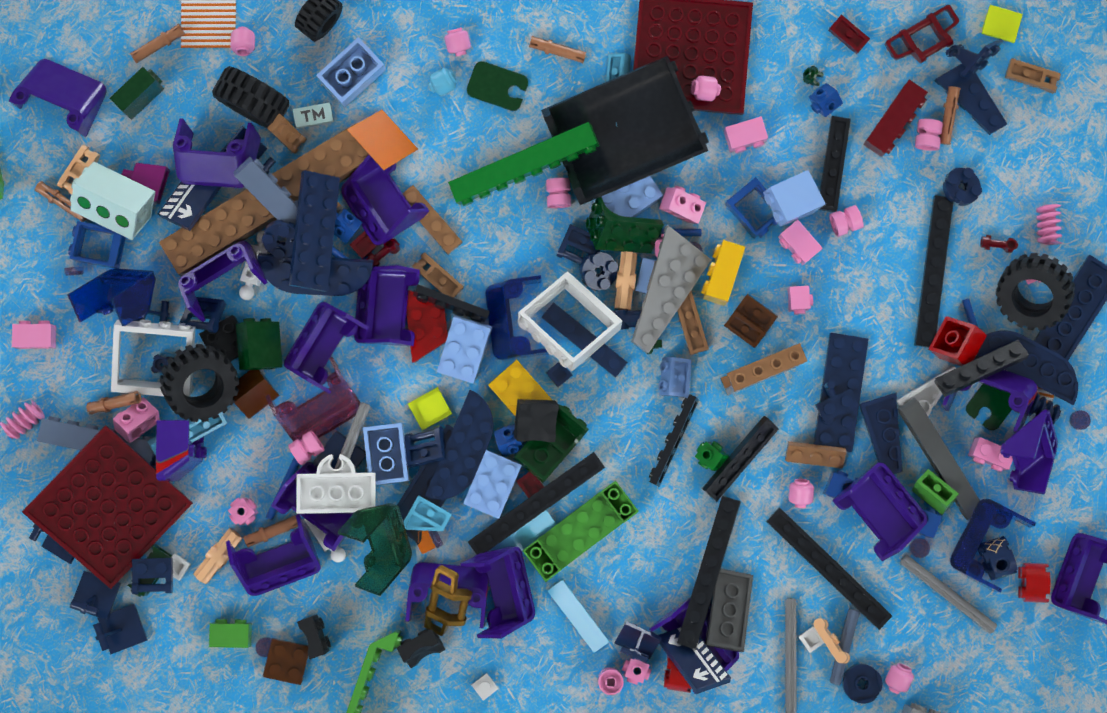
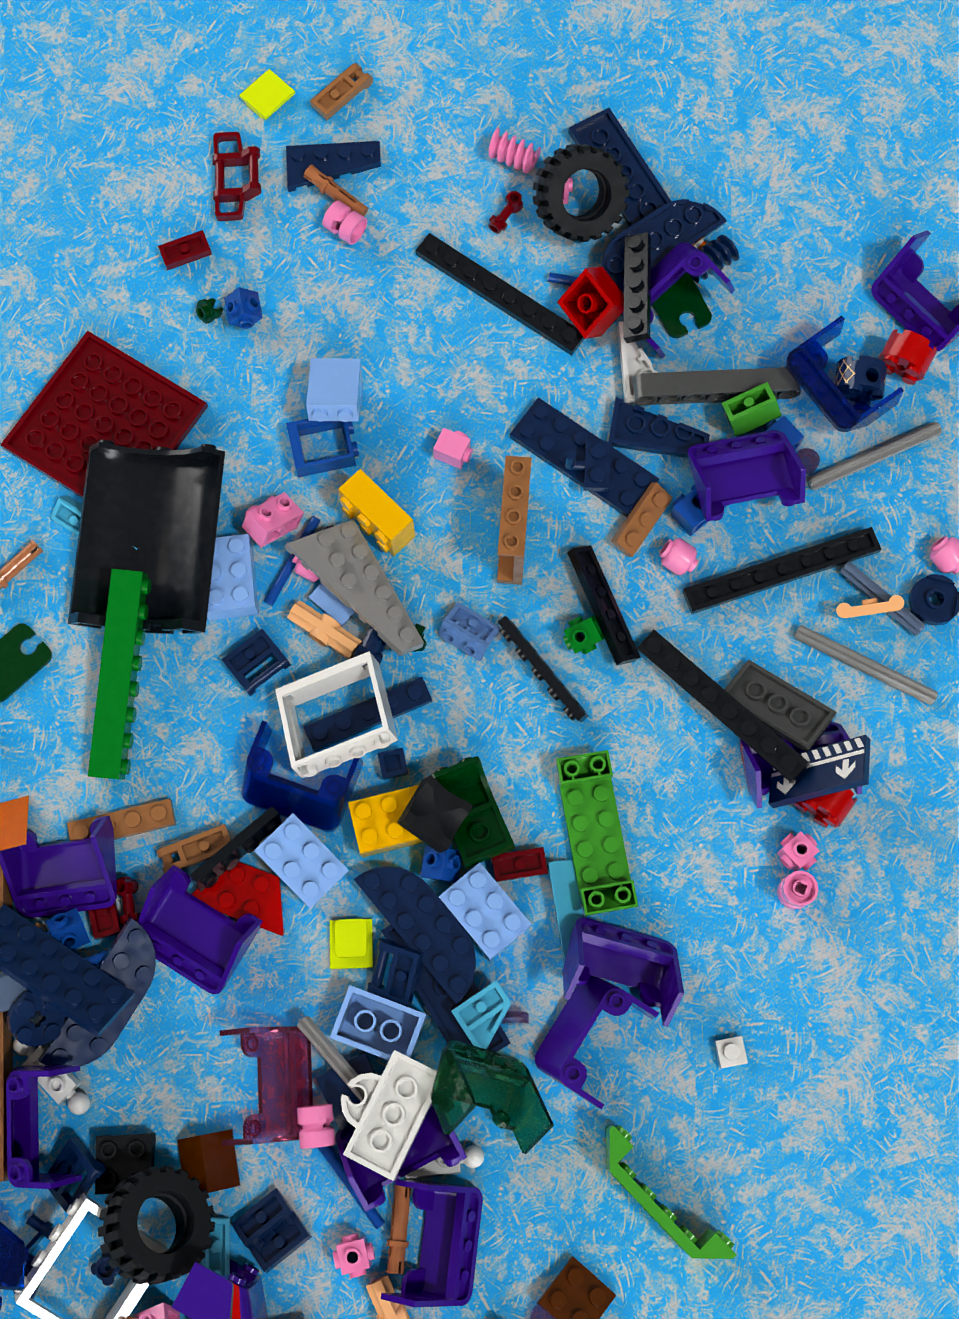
camera: 60 degrees left, 10 degrees down
(232, 452) = (271, 1230): none -> dark blue slope
(259, 344) = (152, 1120): dark green brick -> none
(317, 642) = (551, 1239): black brick -> none
(318, 343) = (191, 1039): dark purple windscreen -> none
(414, 650) = (643, 1116): black brick -> none
(423, 540) = (510, 1035): orange sticker -> none
(450, 592) = (594, 1030): pearl gold bar -> none
(536, 504) = (537, 870): black plate -> none
(558, 190) = (172, 652): bright pink wheel -> none
(578, 616) = (698, 890): medium azure slope -> none
(608, 273) = (304, 645): plate -> none
(621, 233) = (263, 603): dark green bracket -> none
(637, 642) = (765, 831): dark blue plate -> none
(692, 326) = (420, 581): medium nougat plate -> none
(705, 88) = (152, 426): bright pink head -> none
(746, 135) = (232, 411): bright pink brick -> none
(751, 320) = (448, 514): reddish brown slope -> none
(799, 242) = (388, 414): bright pink brick -> none
(811, 639) = (856, 630): white plate -> none
(834, 162) = (316, 333): black plate -> none
(847, 220) = (392, 352): bright pink wheel -> none
(895, 118) = (307, 248): dark red brick -> none
(968, 179) = (413, 209): dark blue plate -> none
(972, 60) = (290, 137): dark blue plate -> none
(988, 452) = (737, 331): bright pink brick -> none
(1033, 454) = (762, 287): dark purple windscreen -> none
(1080, 420) = (745, 226): clear purple tile -> none

